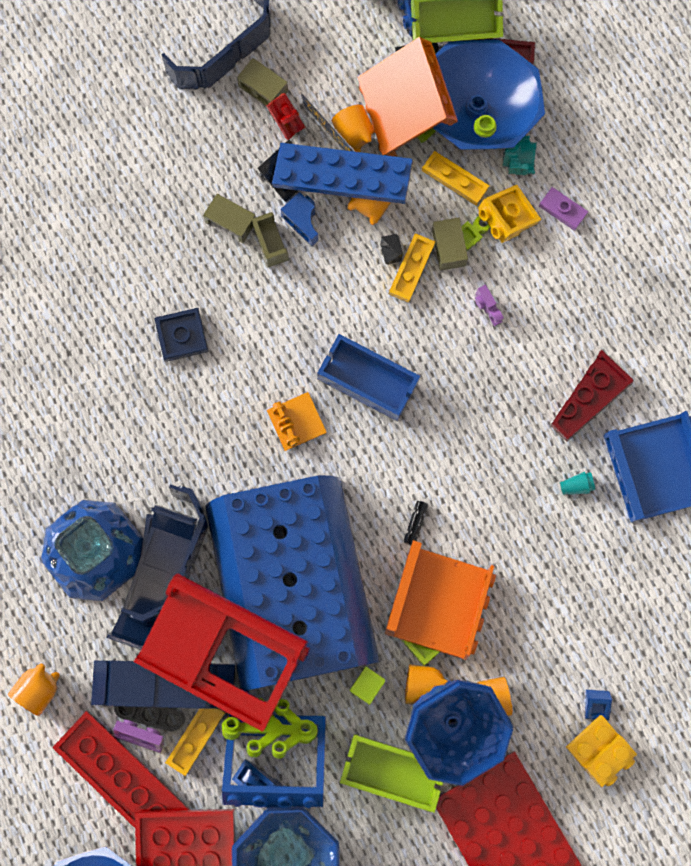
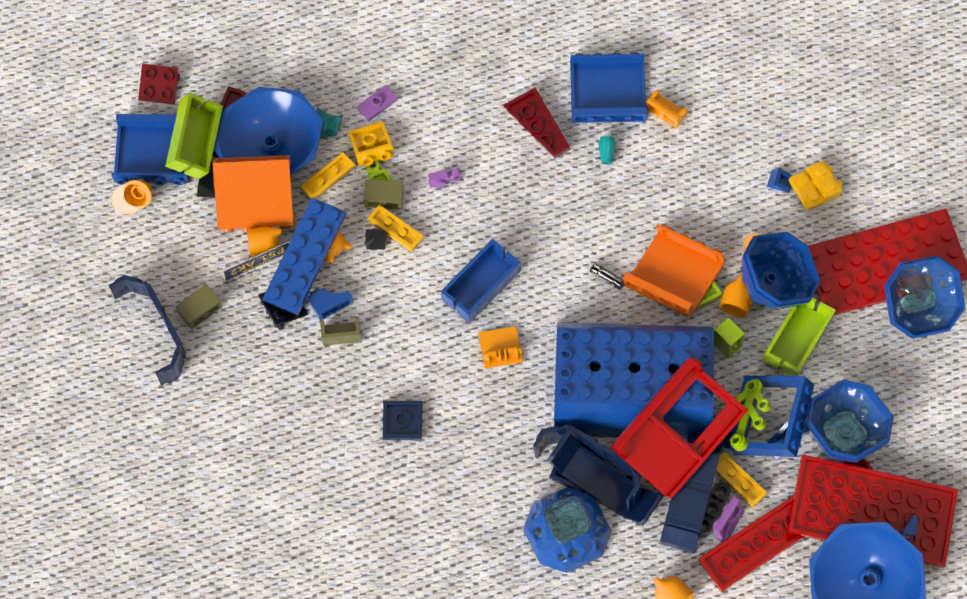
camera: 70 degrees left, 10 degrees down
(230, 216) = (311, 357): olive panel -> none
(285, 116) = (236, 292): red hips -> none
(485, 126) = (300, 135): lime plate -> none
(652, 543) = (666, 109): none -> light orange hinge

